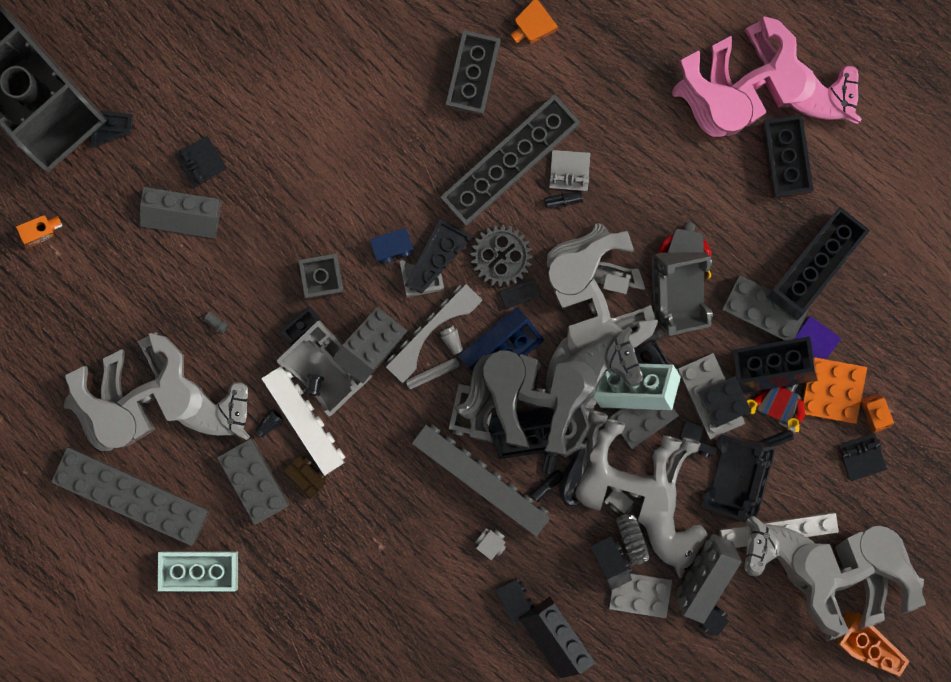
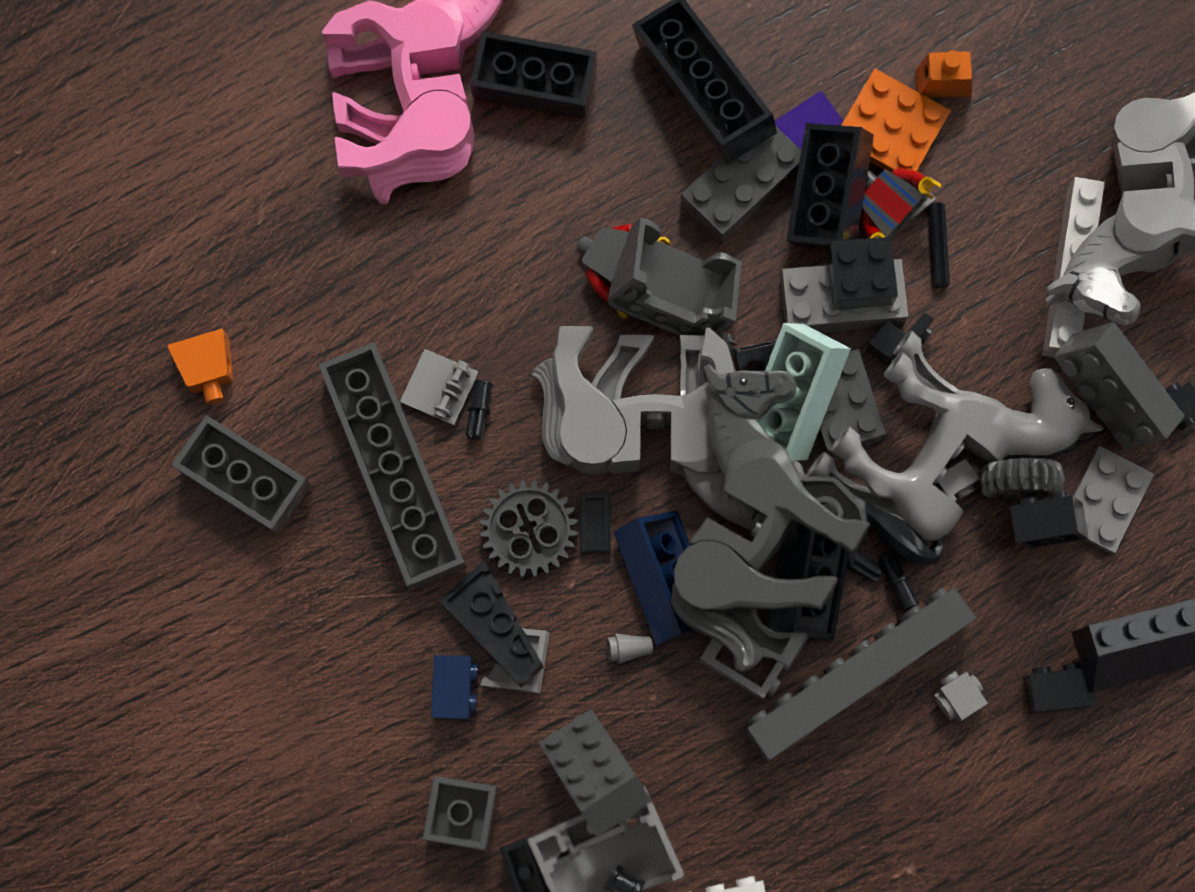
camera: 70 degrees left, 10 degrees down
(406, 361) = (638, 728): light grey arch -> none
(432, 373) = (669, 695): light grey axle -> none
(616, 282) = (629, 371): light grey brick -> none
(739, 477) = (977, 297): black windscreen -> none
(863, 457) = (1001, 118): black hinge -> none

